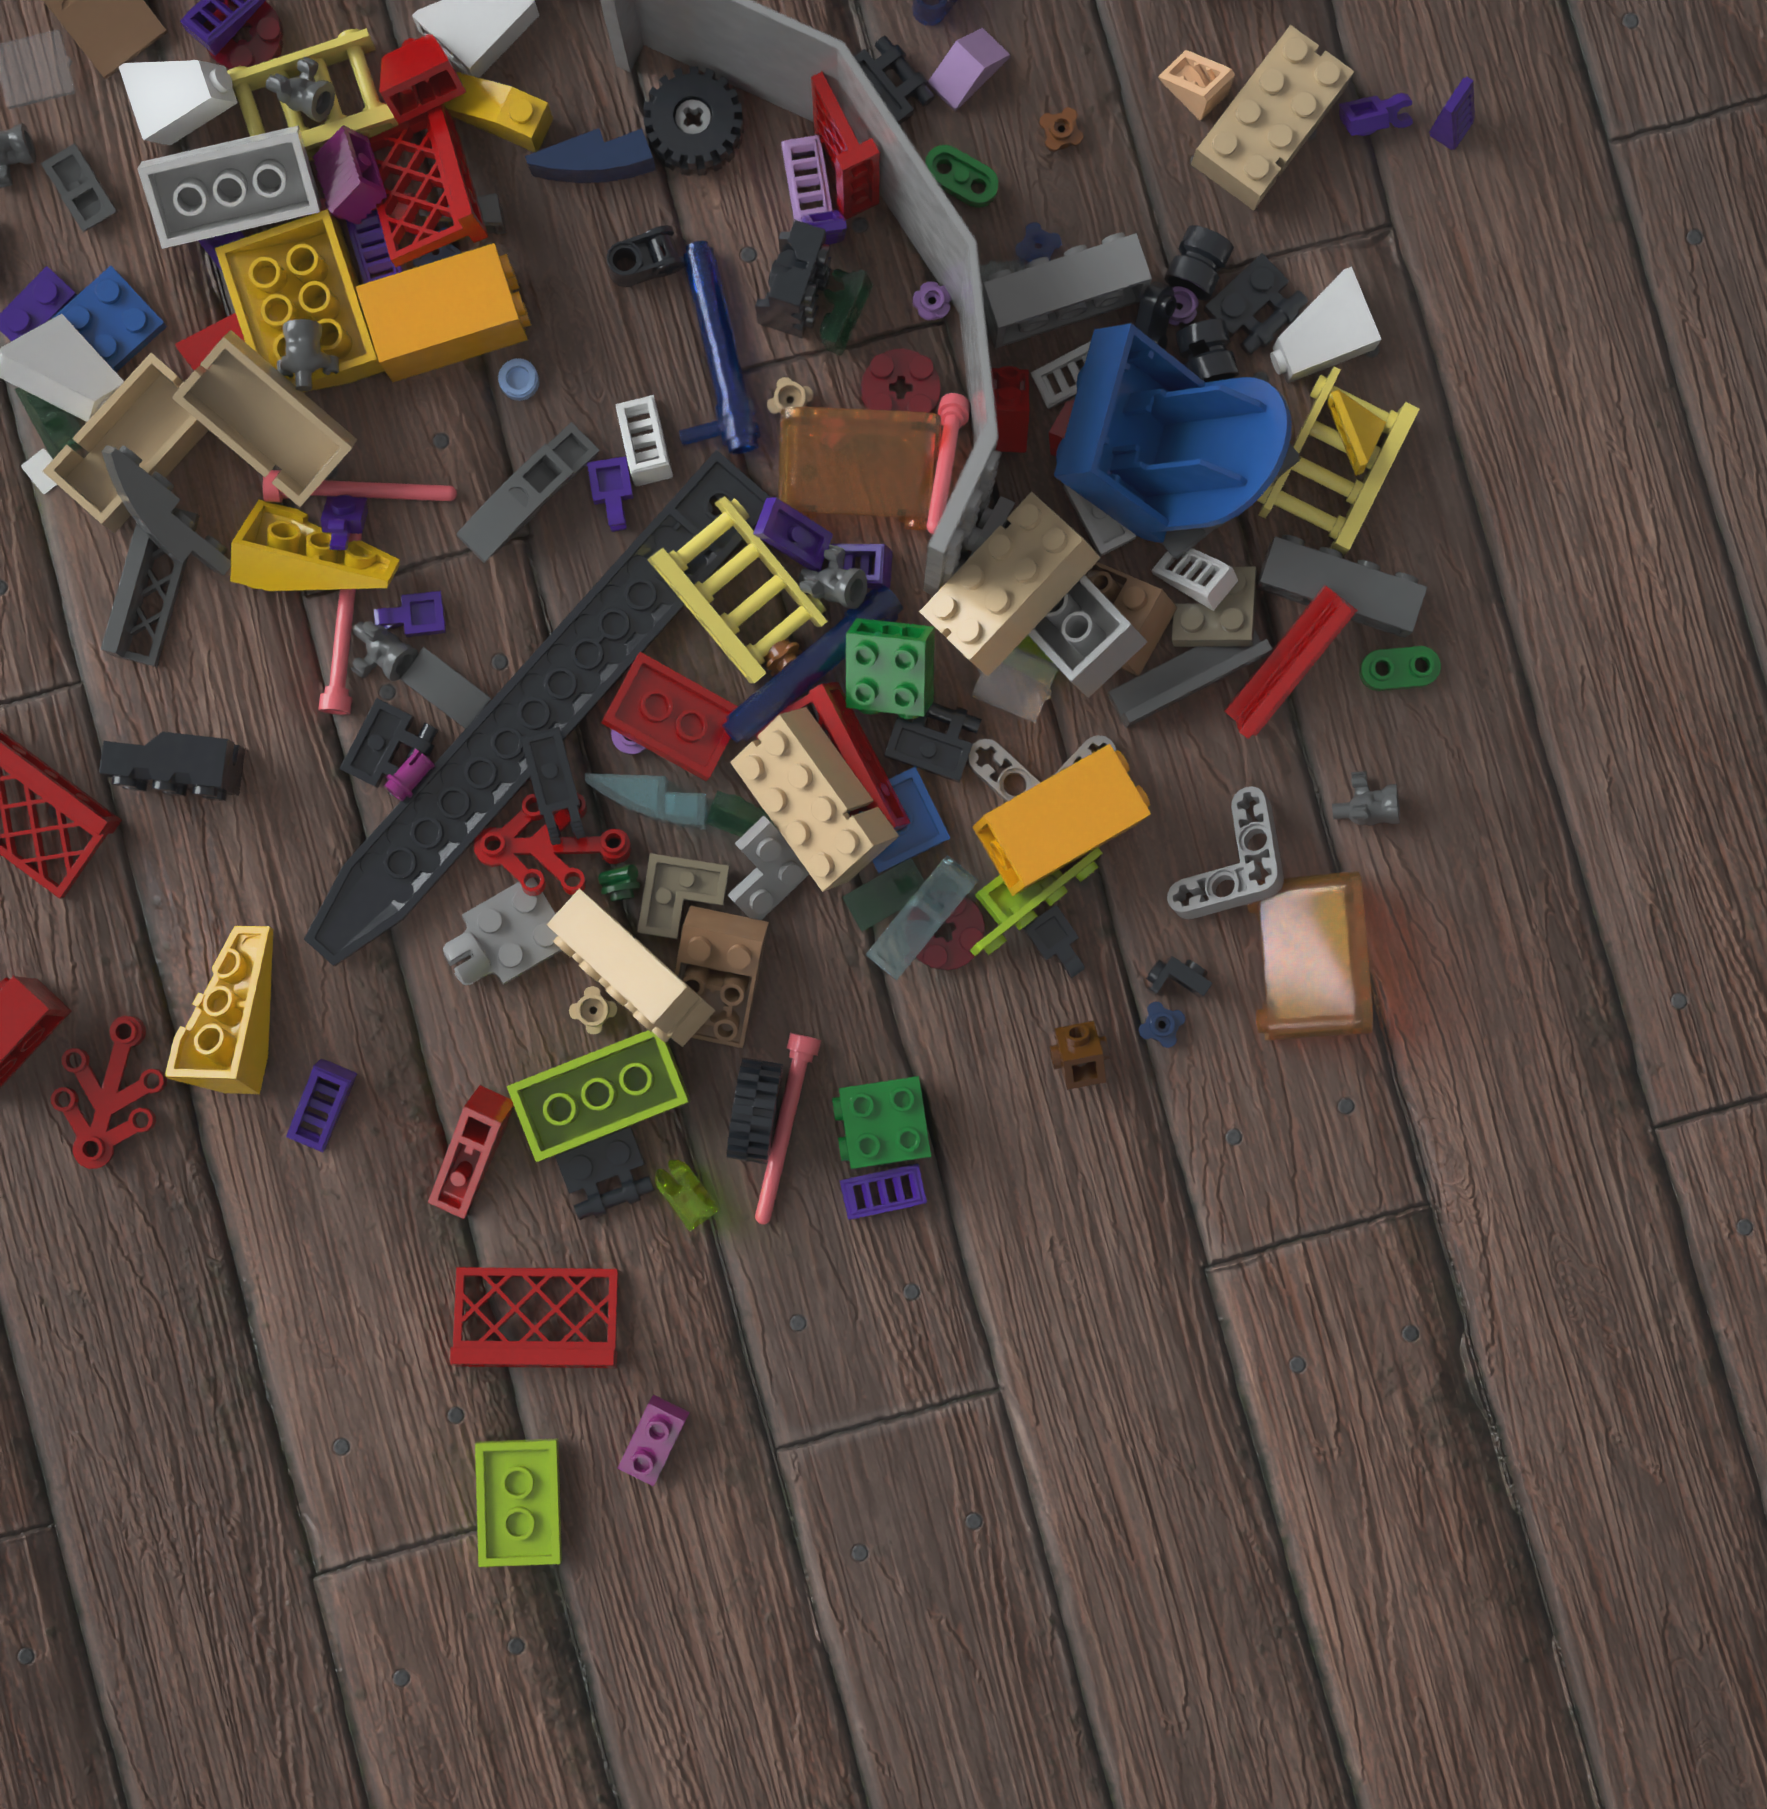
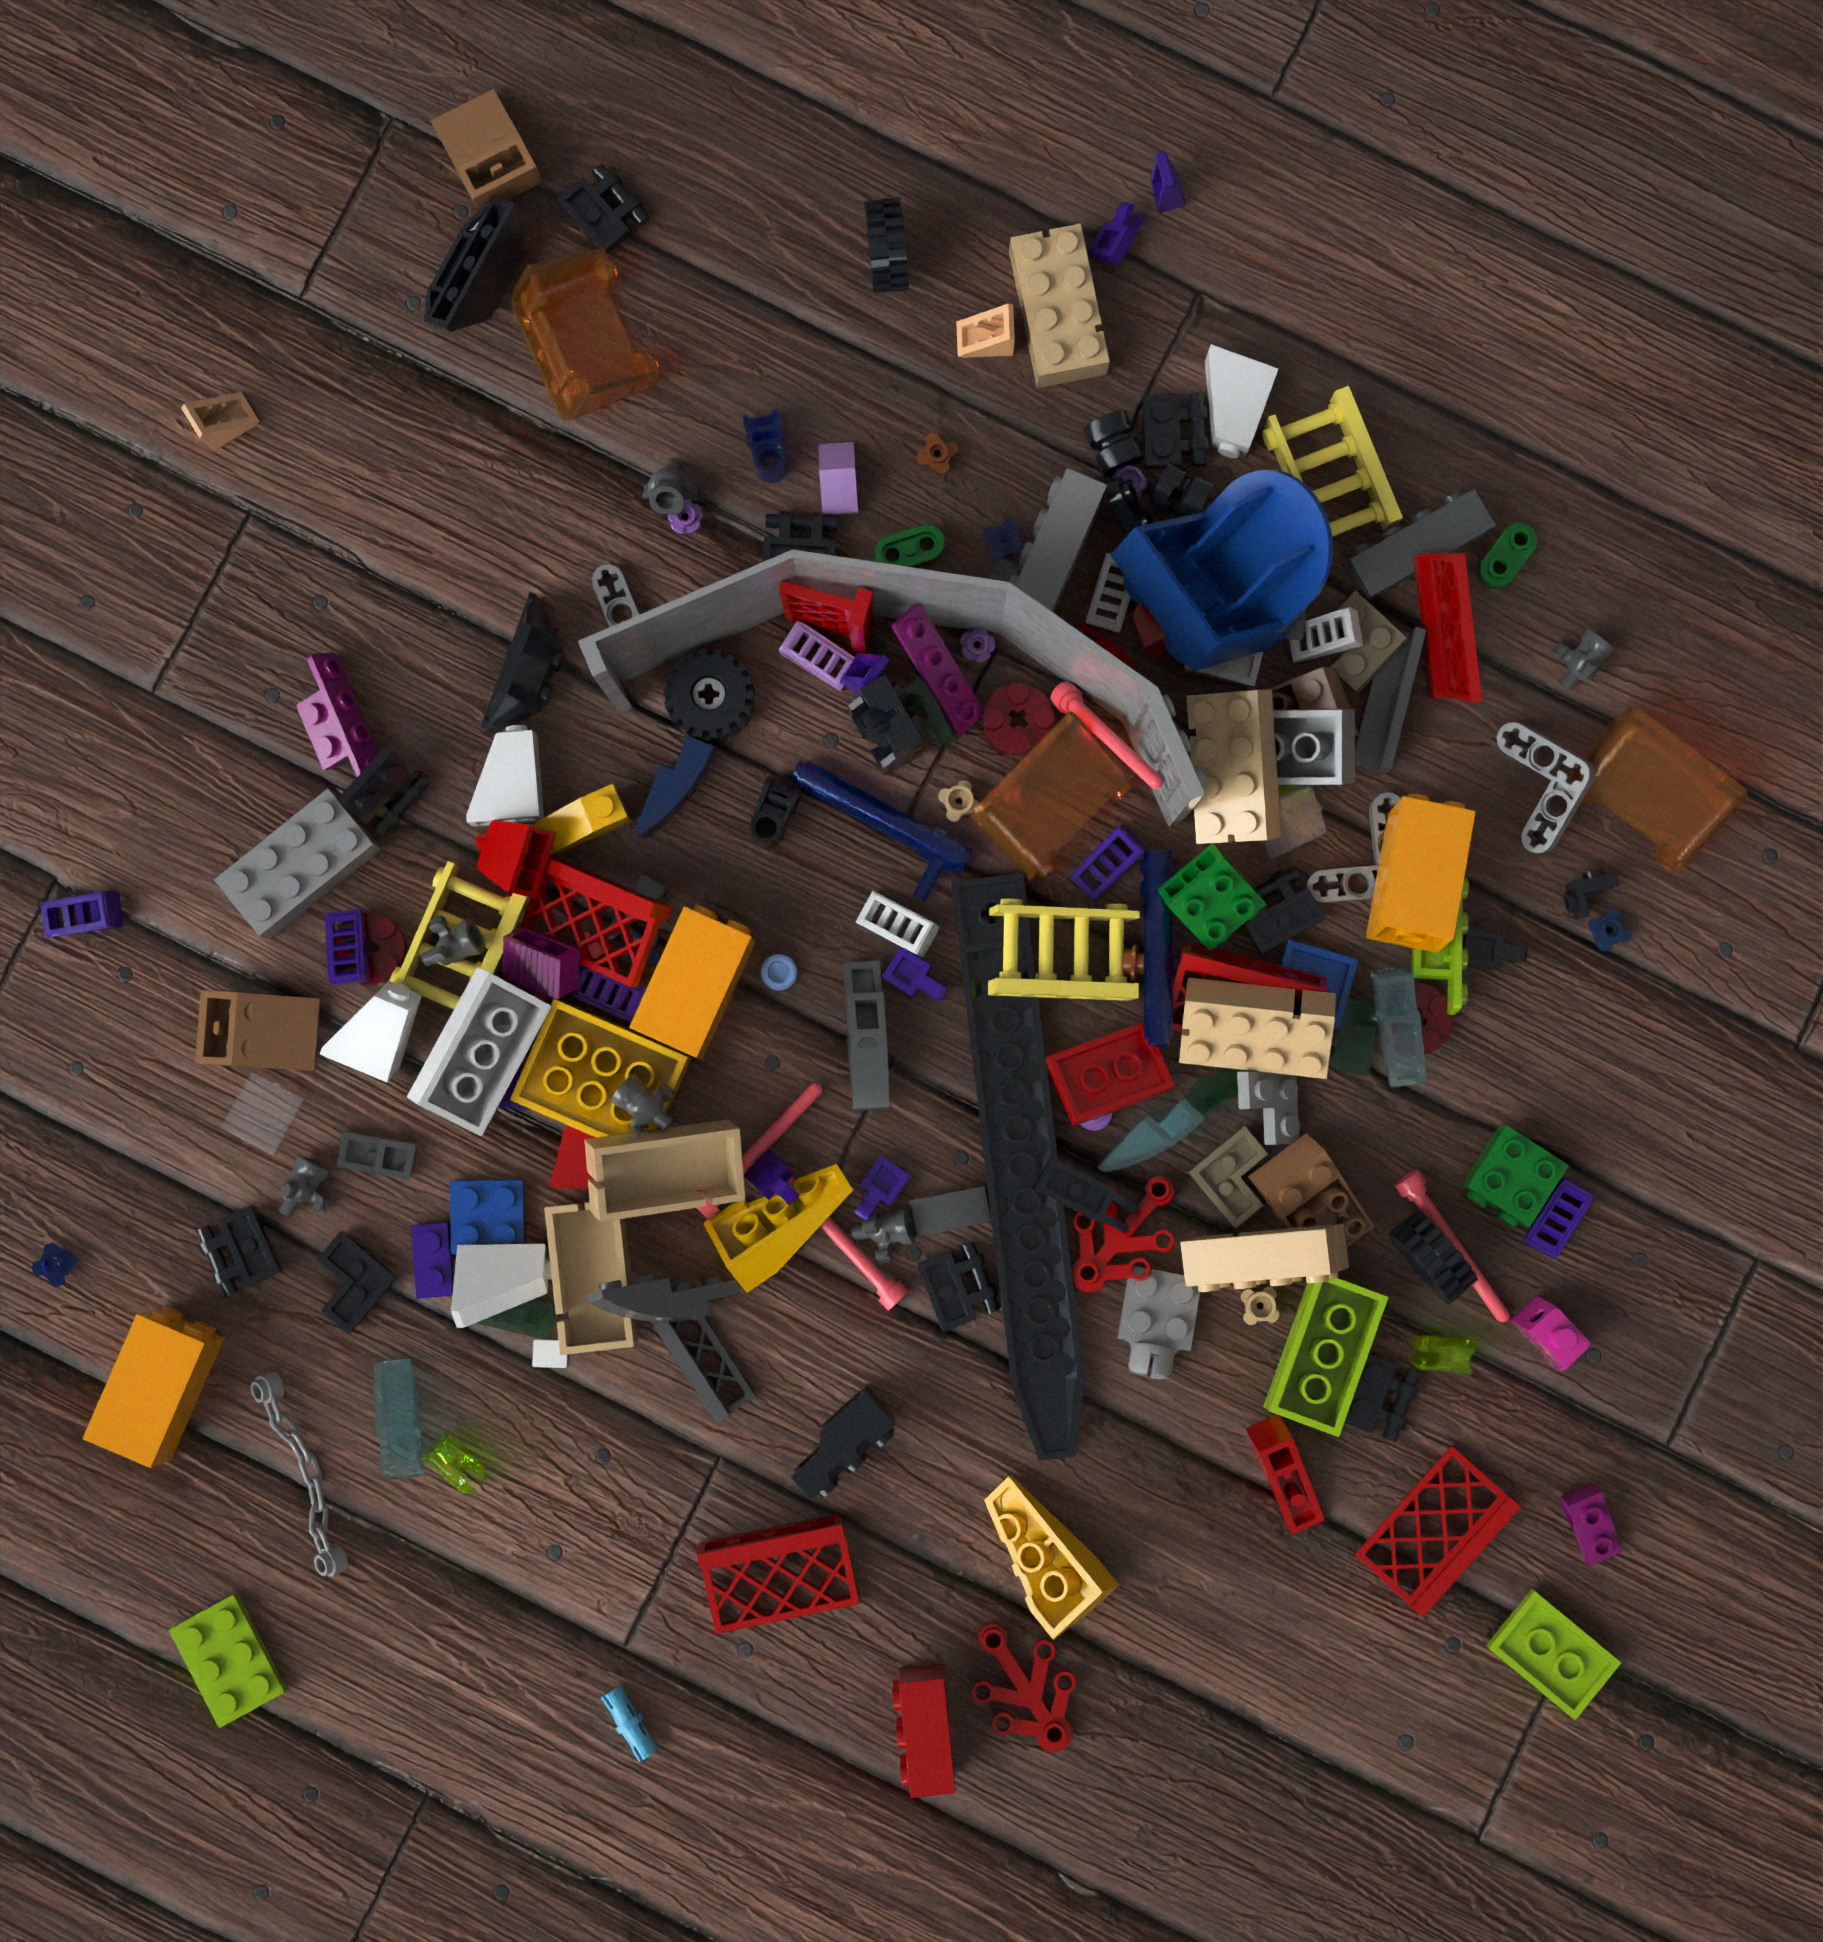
camera: 40 degrees left, 0 degrees up
(335, 1074) = (1150, 1527): dark purple slope -> none
(408, 775) = (992, 1289): magenta pin -> none
(619, 882) = (1190, 1210): dark green plate -> none
(780, 1268) = (1551, 1333): none -> dark pink torso
(792, 533) = (1059, 881): dark purple plate -> none
(834, 582) = (1116, 882): dark grey piece -> none
(877, 277) = (938, 668): none -> magenta bracket
(1077, 1047) = (1584, 1003): reddish brown brick -> none
(1356, 427) = (1327, 440): yellow slope -> none

